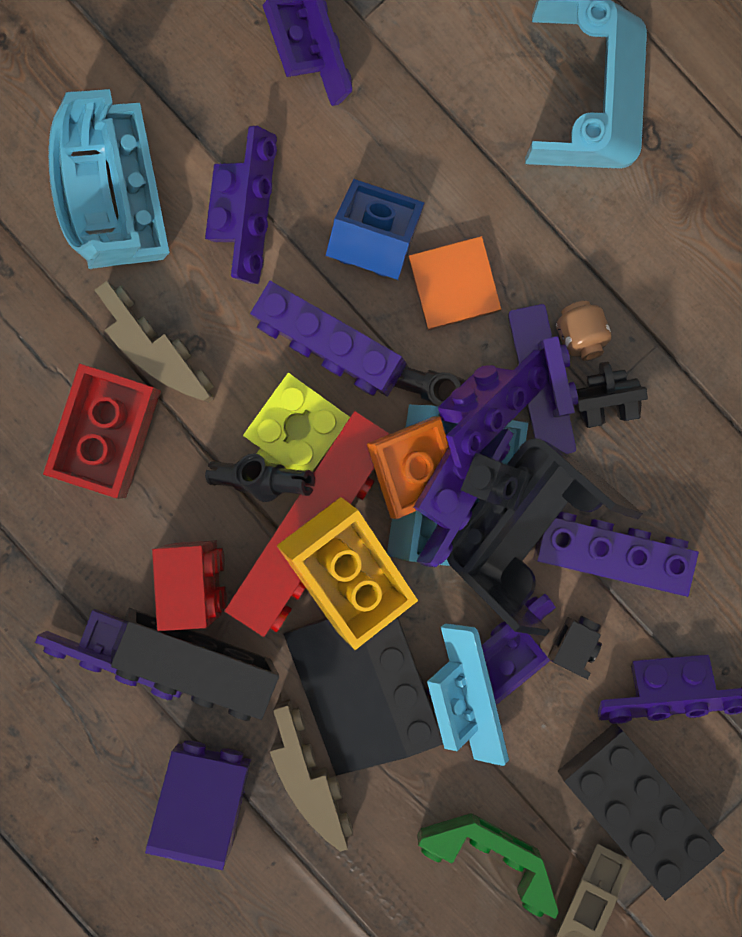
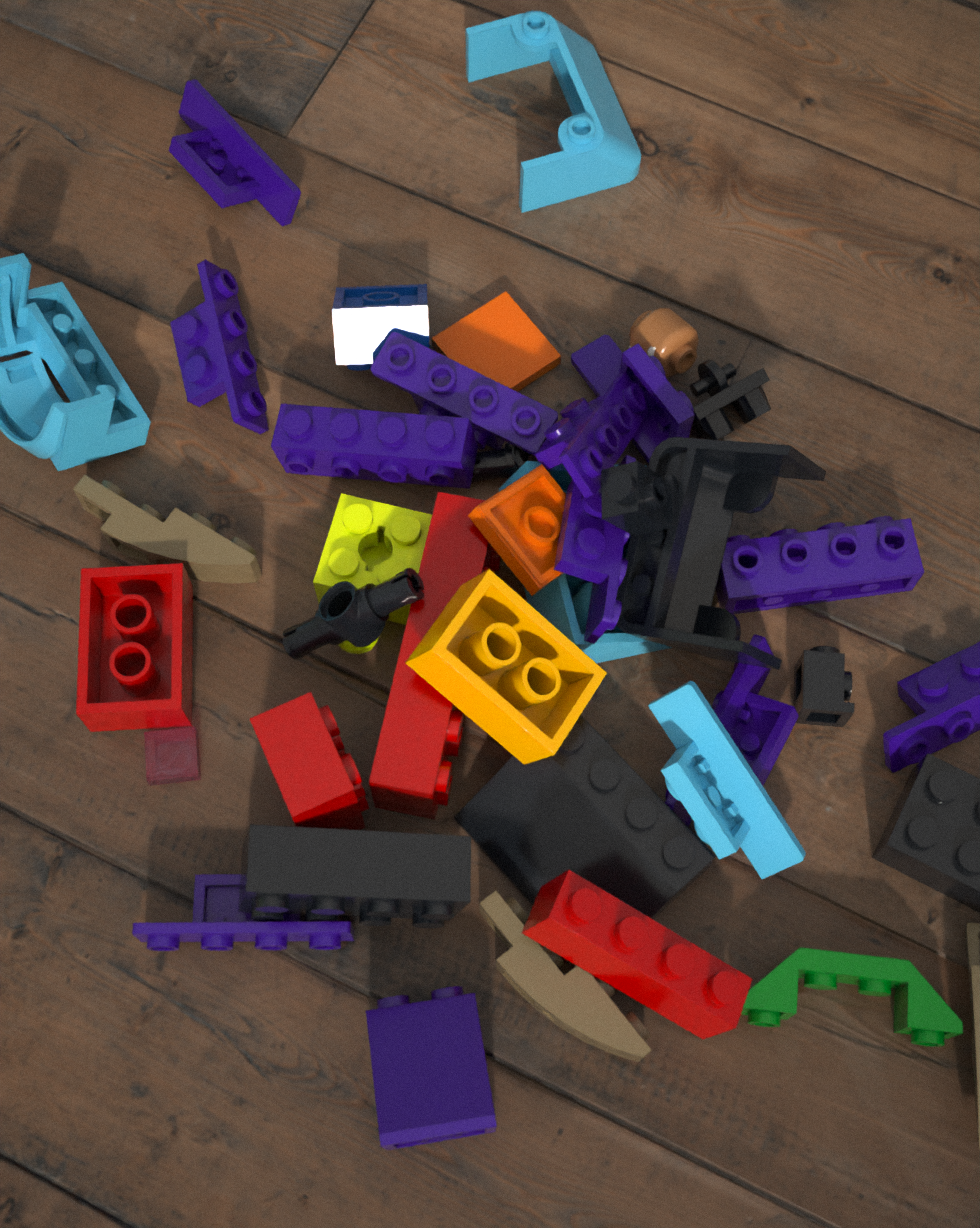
camera: 25 degrees left, 20 degrees down
(105, 514) = (172, 756): none -> clear pink tile
(361, 789) = (637, 955): none -> red brick
(410, 325) = (454, 390): none -> dark purple bracket

